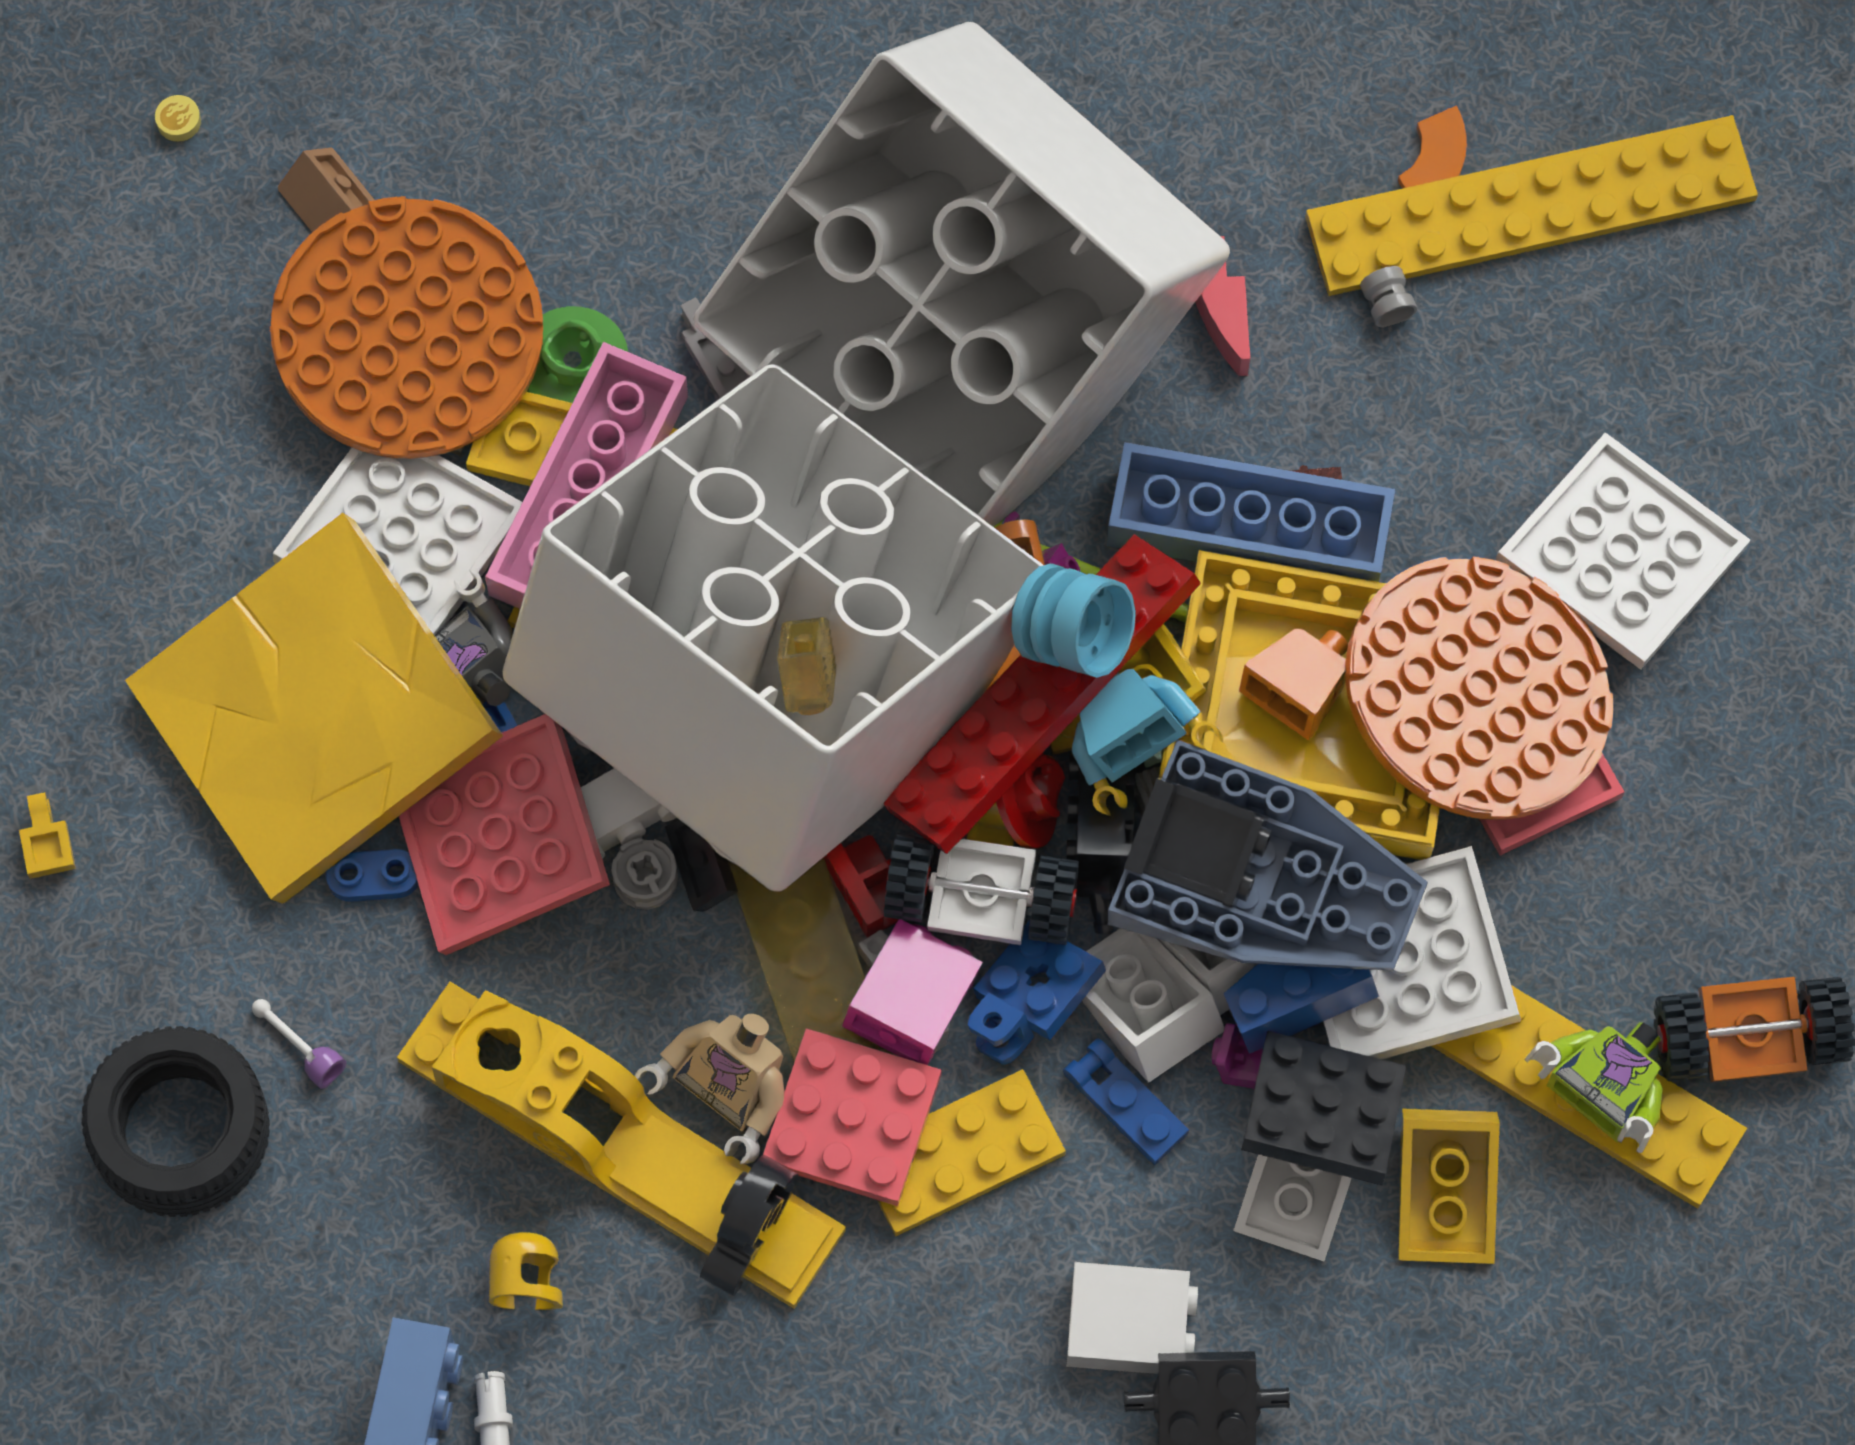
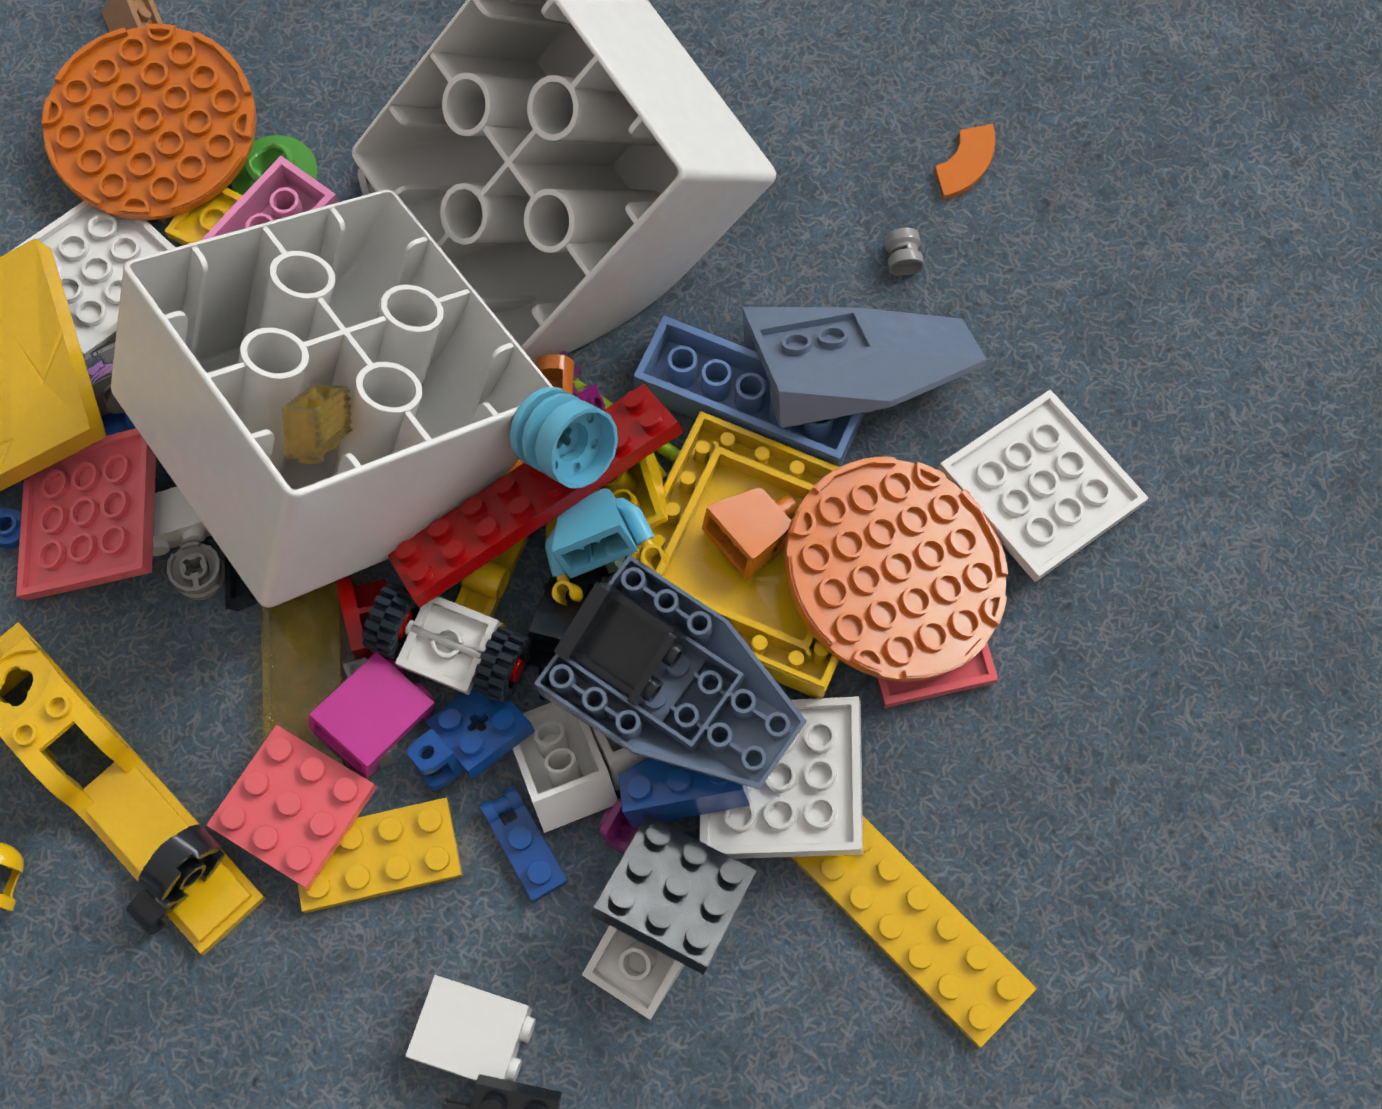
camera: 15 degrees right, 0 degrees up
(731, 1072) = (206, 747): tan torso -> none
(1031, 803) = (511, 580): red piece -> none
(1226, 319) = (773, 231): coral slope -> none
(1366, 446) = (854, 358): none -> sand blue wedge
(1448, 1185) = (769, 979): yellow slope -> none
(1533, 204) = (1036, 207): yellow plate -> none
(1607, 1078) = (925, 922): torso -> none
(1754, 1029) = (1062, 905): plate -> none

